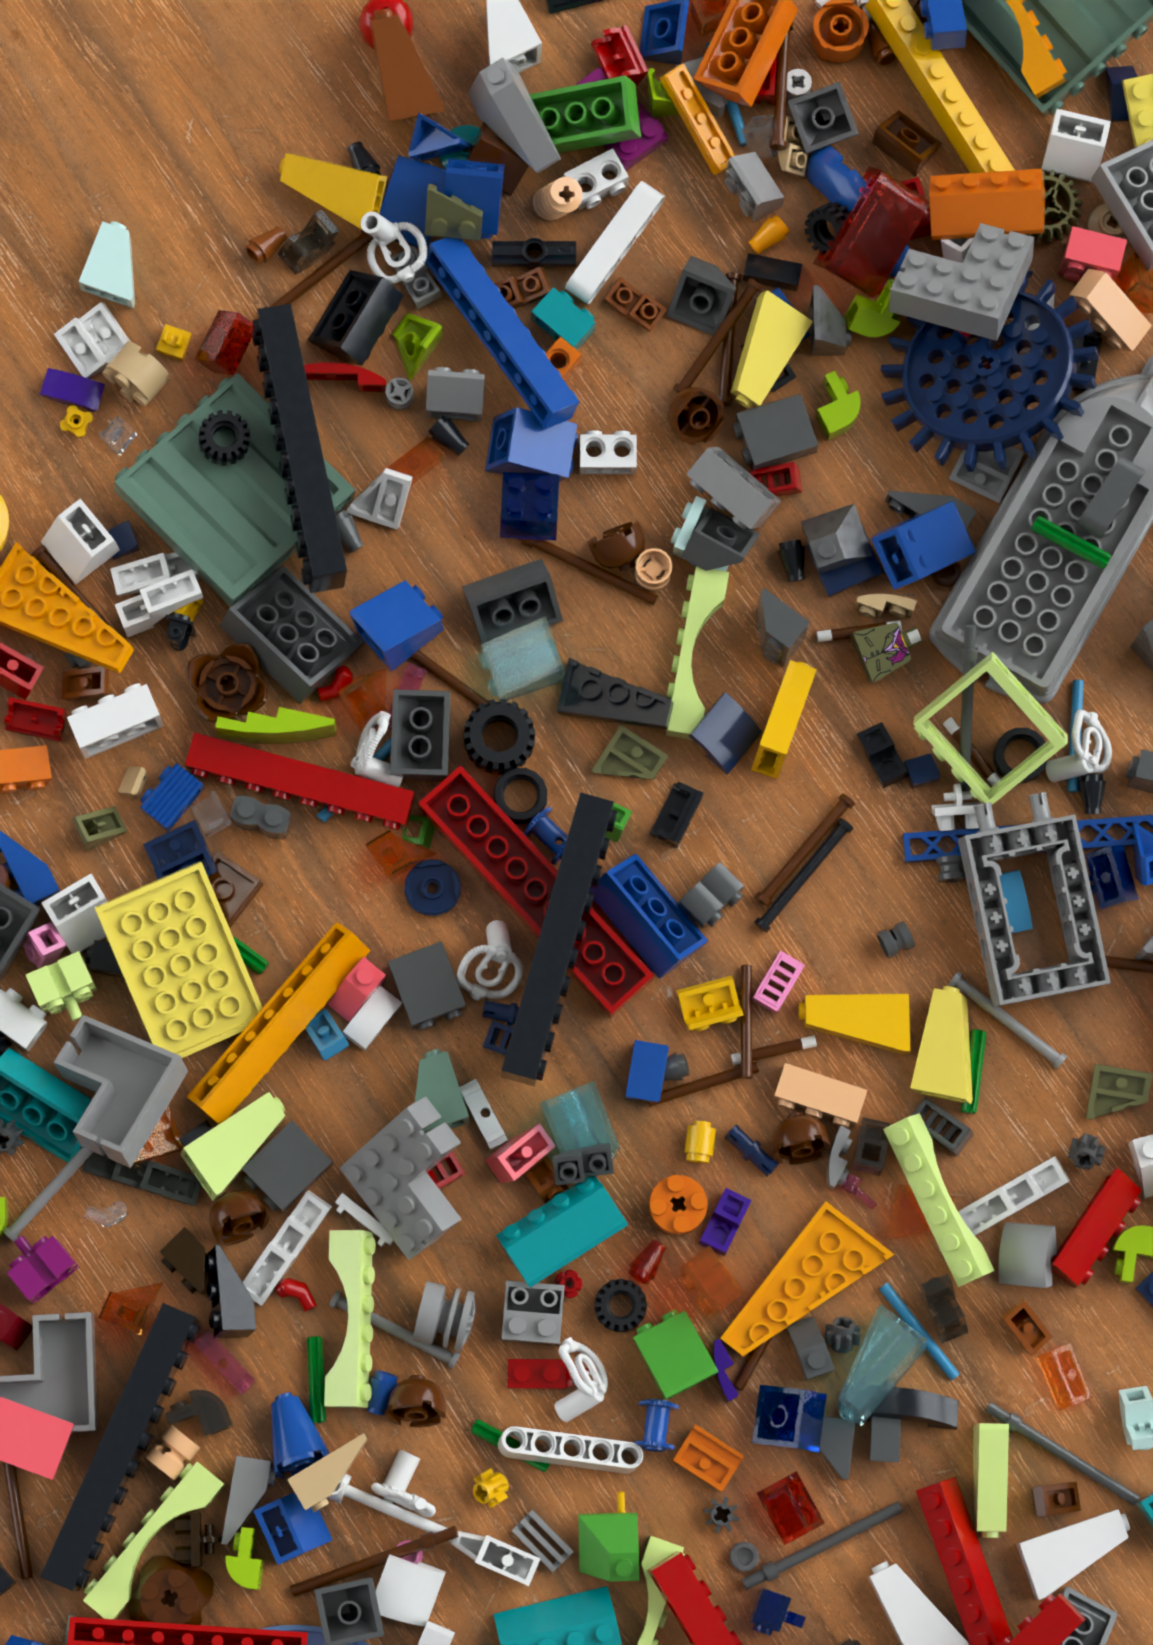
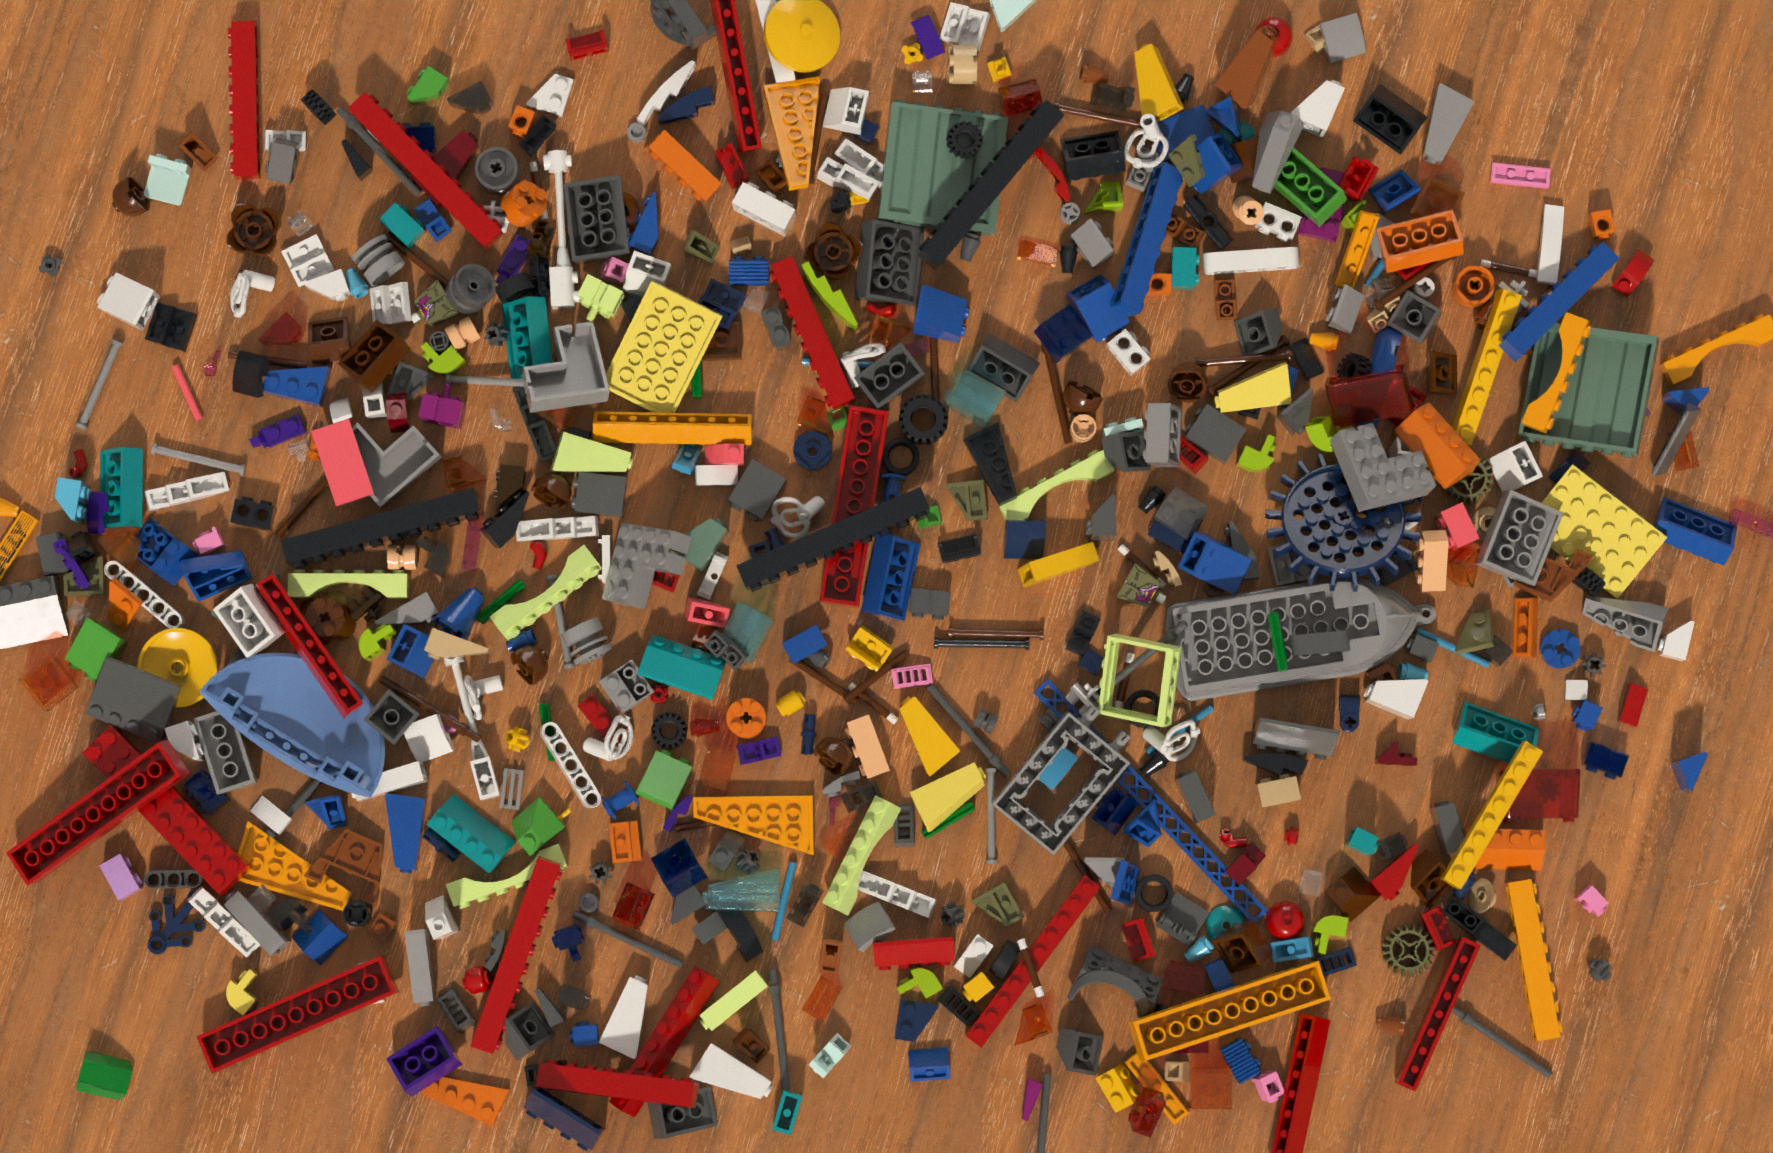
camera: 55 degrees right, 5 degrees up
(383, 499) = (1003, 252): white wing -> none
(947, 965) = (994, 760): none -> dark grey bar

